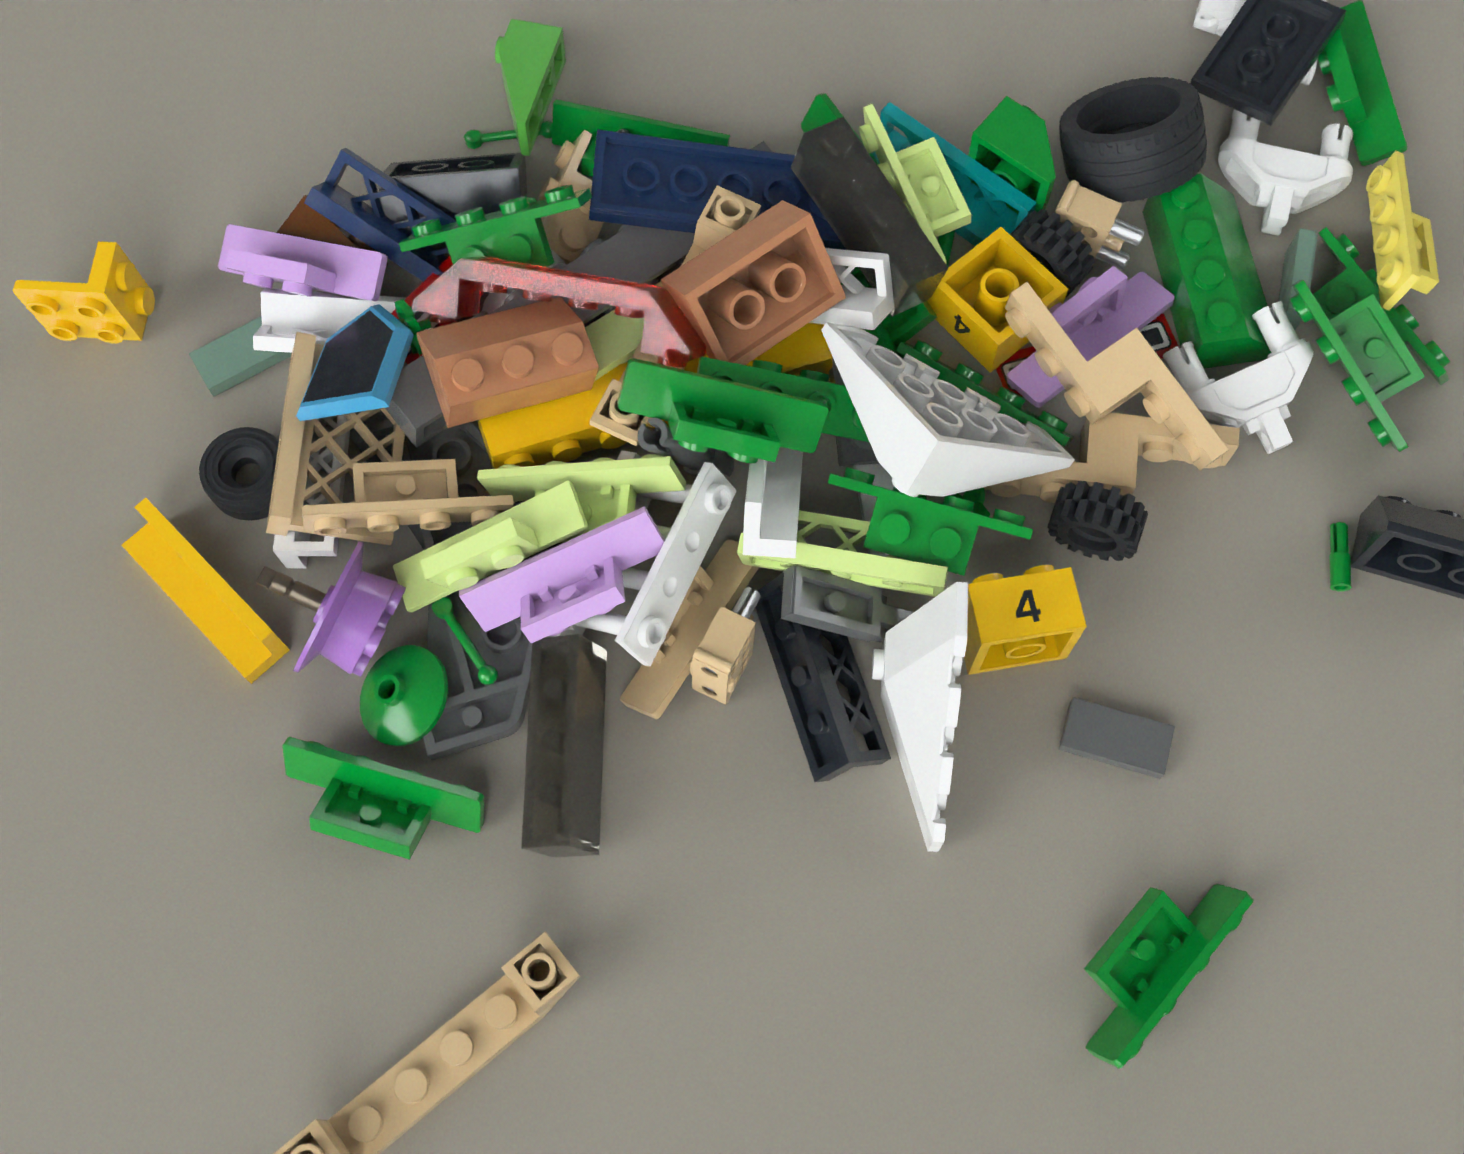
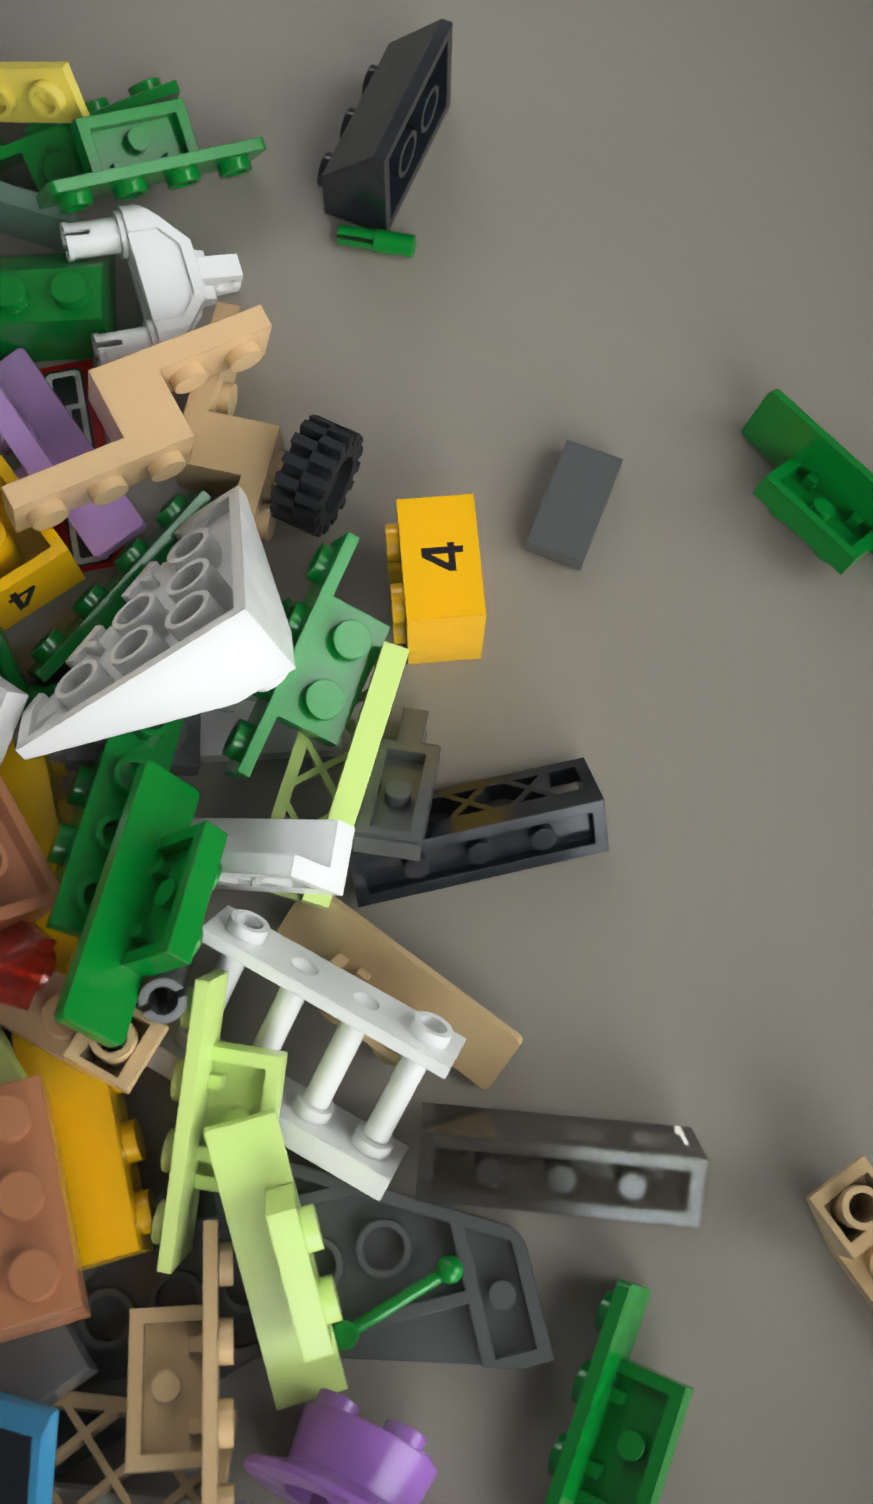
camera: 90 degrees left, 5 degrees up
(418, 697) = (457, 1371): green dish -> none
(567, 580) = (349, 1145): lavender bracket -> none
(725, 649) = (440, 937): tan piece -> none
(923, 701) = (535, 695): white slope -> none

